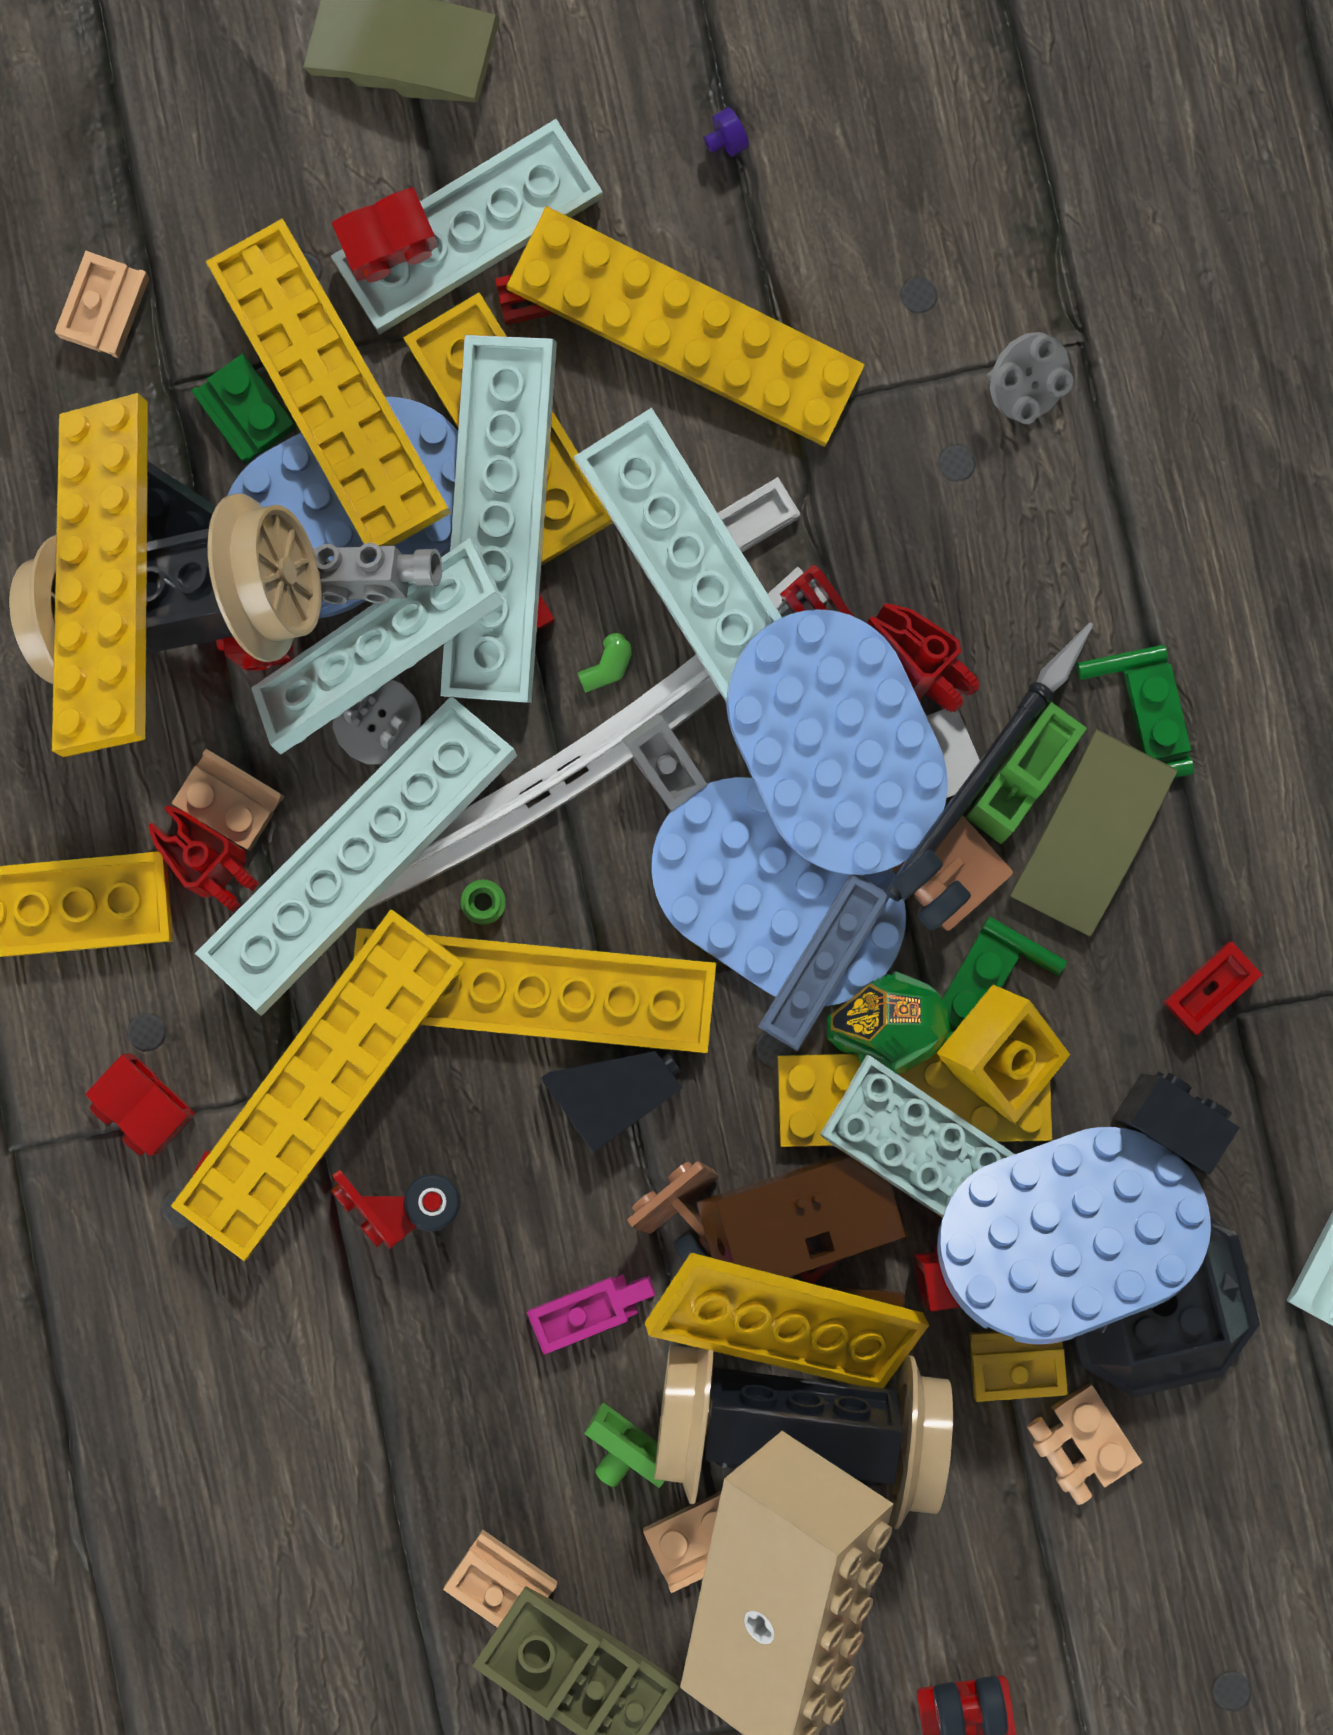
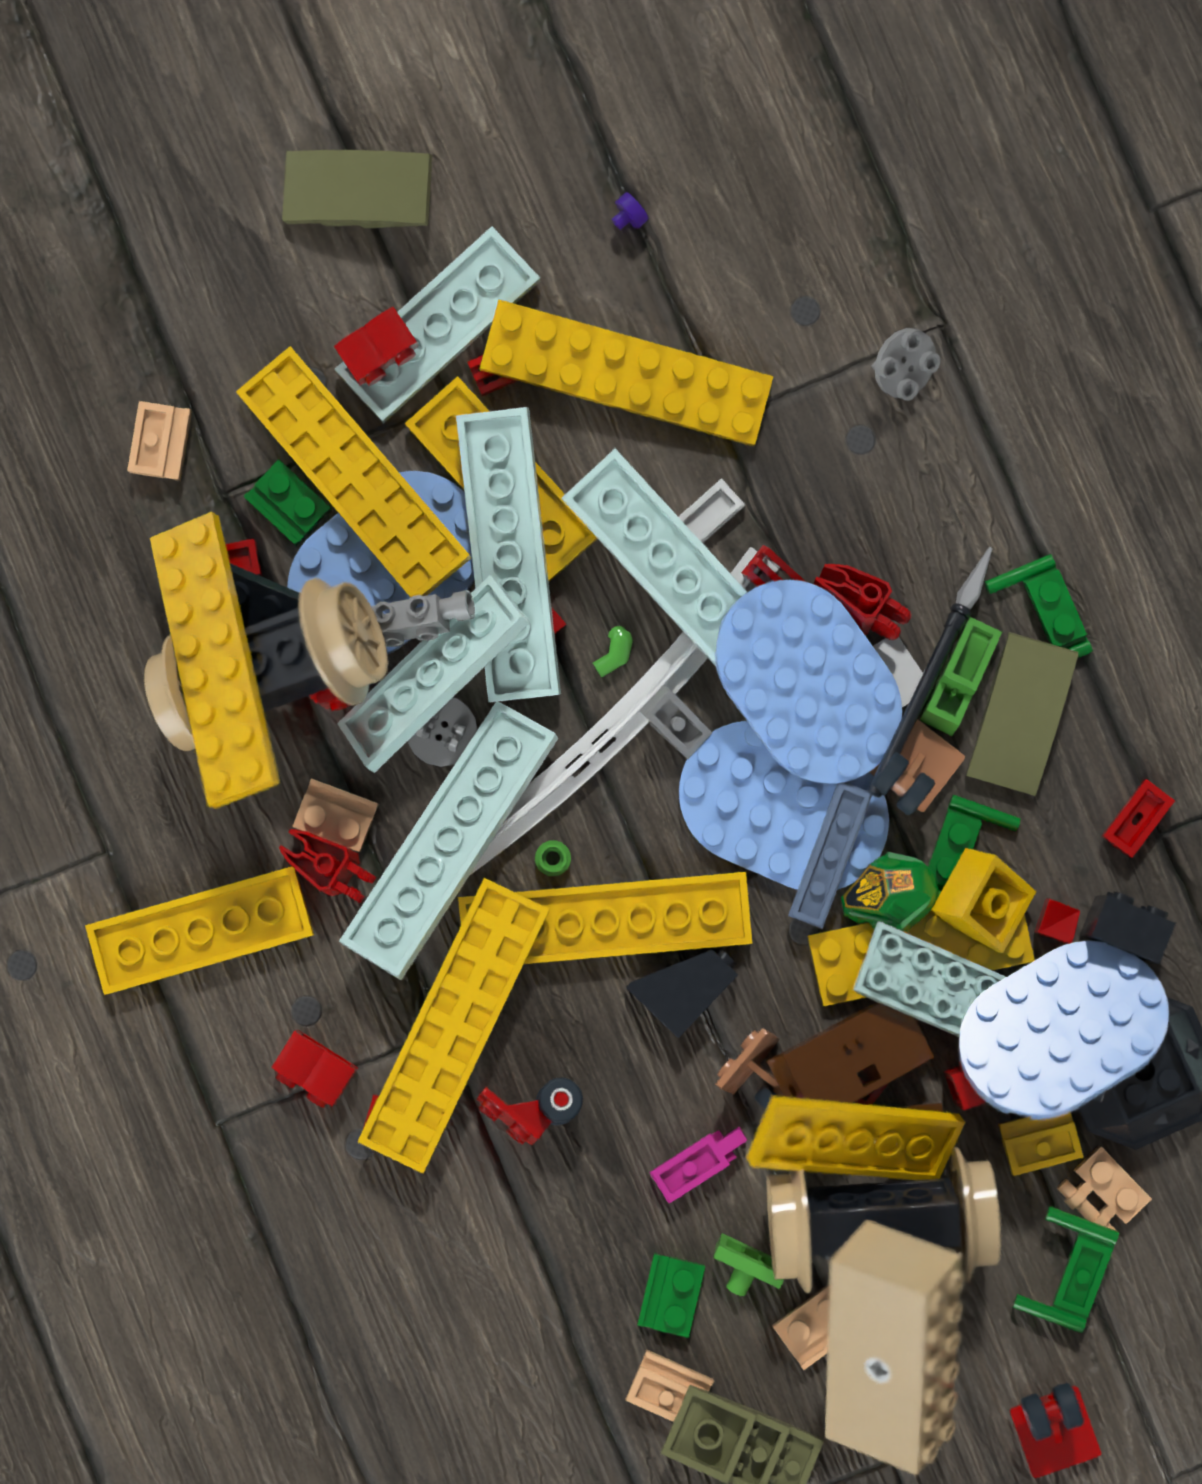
camera: 10 degrees left, 0 degrees up
(175, 460) = (244, 555): none -> red plate
(525, 1467) = (671, 1295): none -> green plate
(1036, 1541) = (1081, 1274): none -> green plate
(1089, 1096) = (1057, 921): none -> red slope

